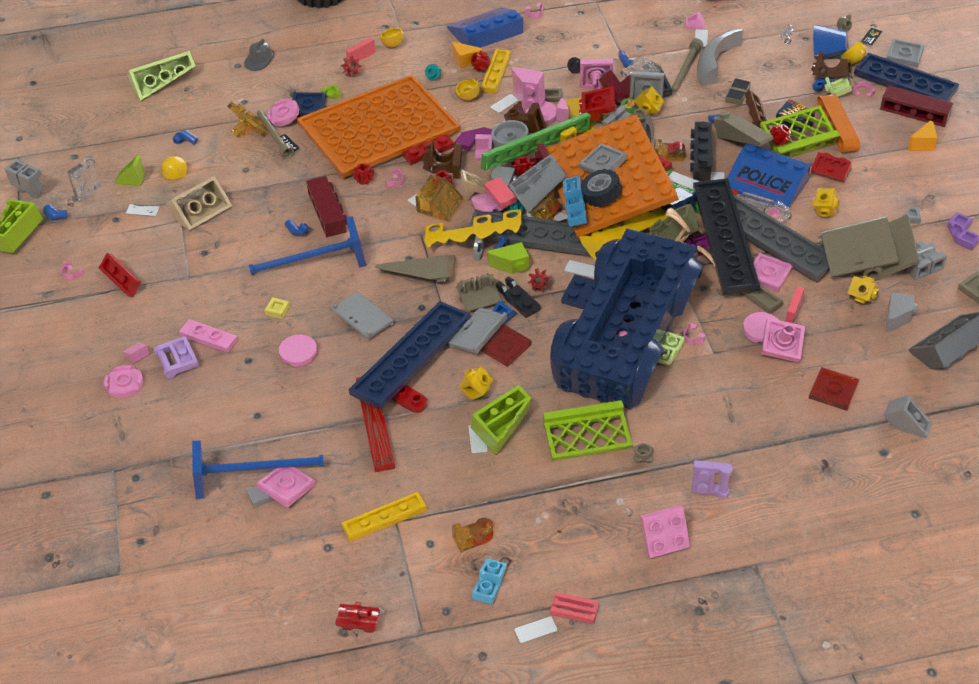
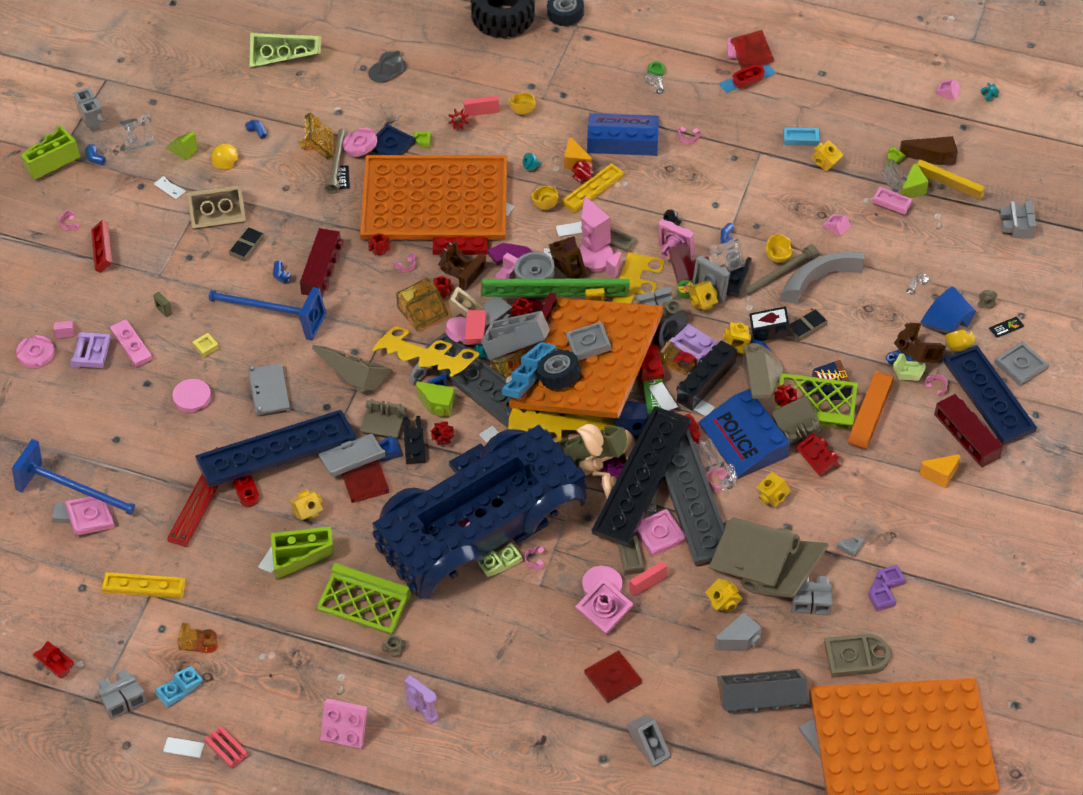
camera: 30 degrees right, 5 degrees up
(214, 293) = (162, 304): none -> olive tile
(248, 221) = (246, 244): none -> black tile
(446, 614) = (121, 693): none -> light grey hips
(597, 102) = (649, 273): red plate -> none
(670, 134) = (695, 340): none -> lavender plate
(672, 52) = (778, 248): none -> yellow hair
(700, 114) = (737, 336): none -> yellow brick
(702, 35) = (829, 244): white sticker -> none
(715, 99) = (770, 324): none -> black brick
(756, 108) = (802, 354): reddish brown plate -> none
(801, 146) = (797, 420): none -> dark tan hinge

